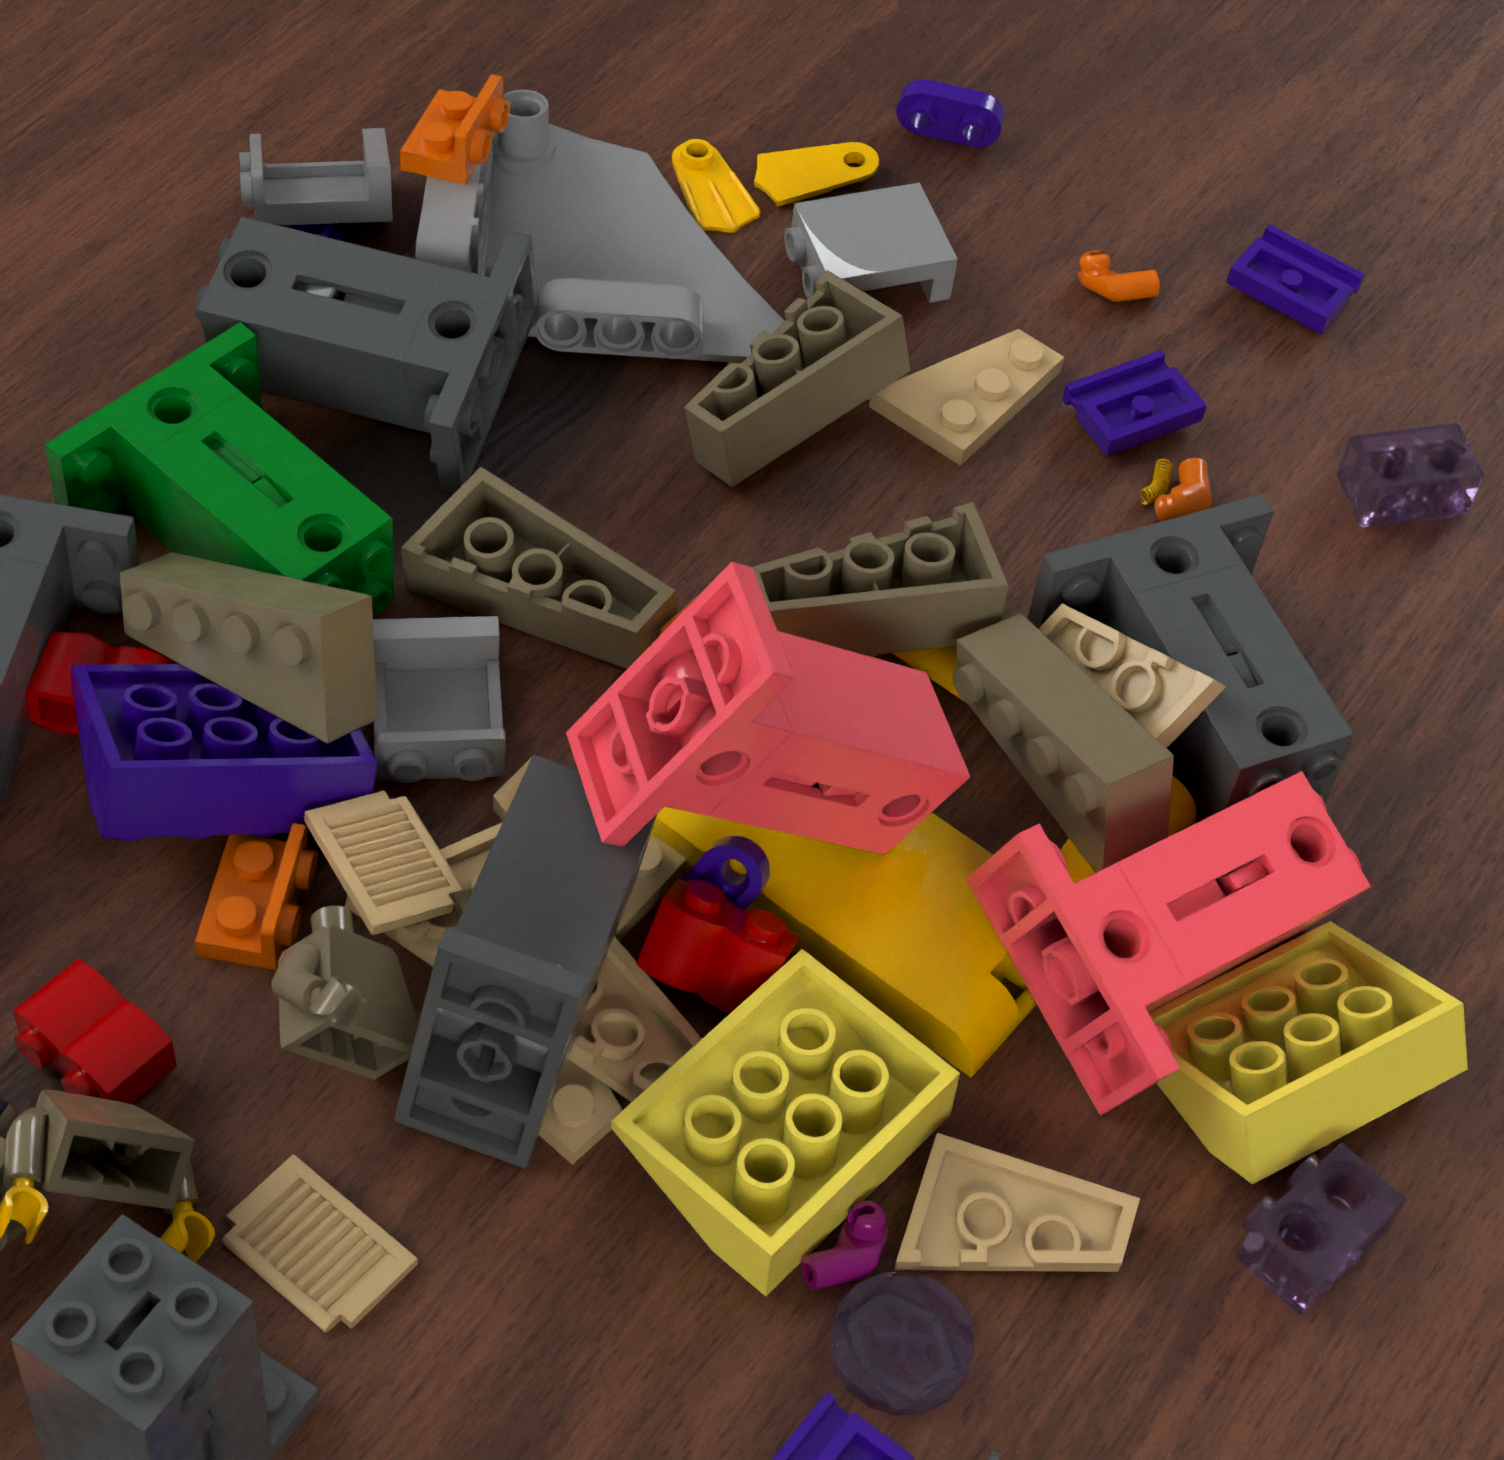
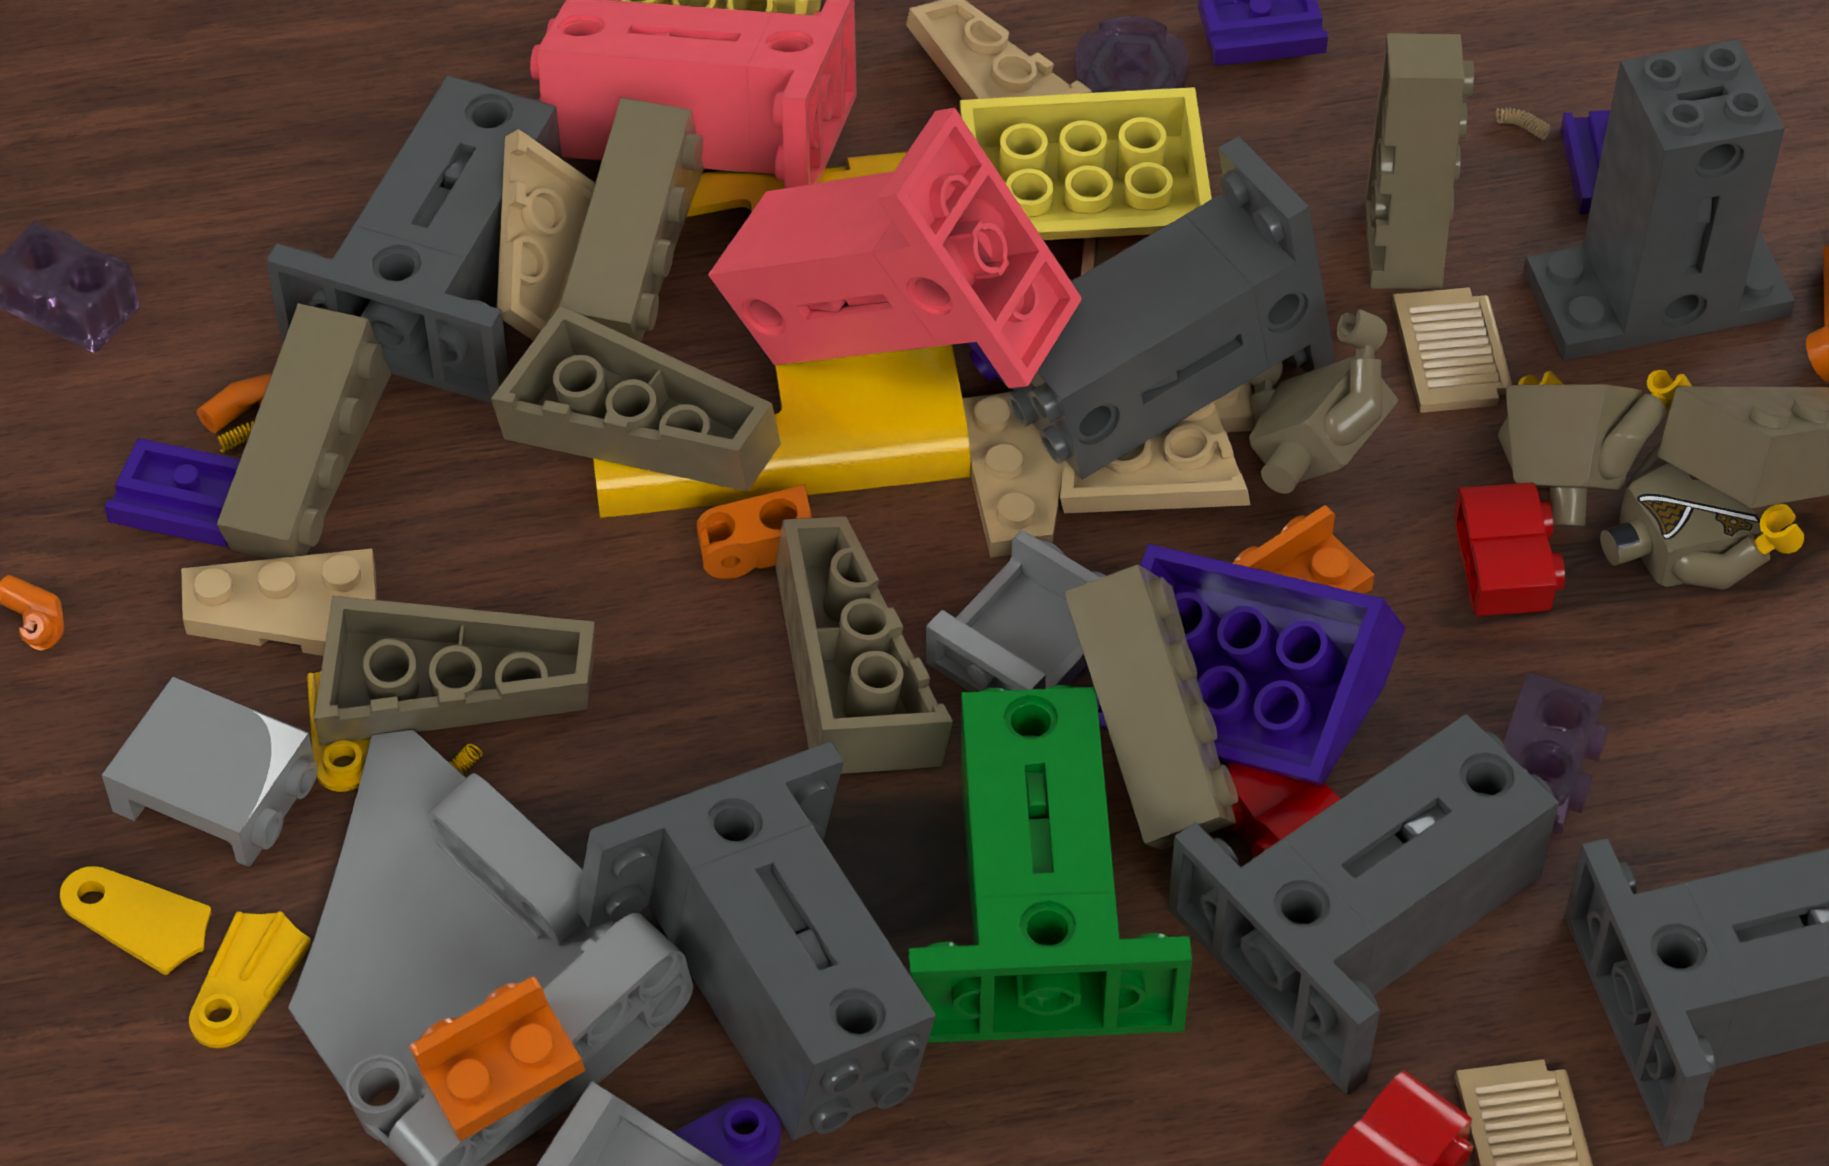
camera: 130 degrees left, 0 degrees up
(385, 860) = (1200, 493): tan window -> none
(478, 1301) = (1415, 158): none -> dark tan wedge
(1092, 456) = (304, 433): none -> dark tan wedge

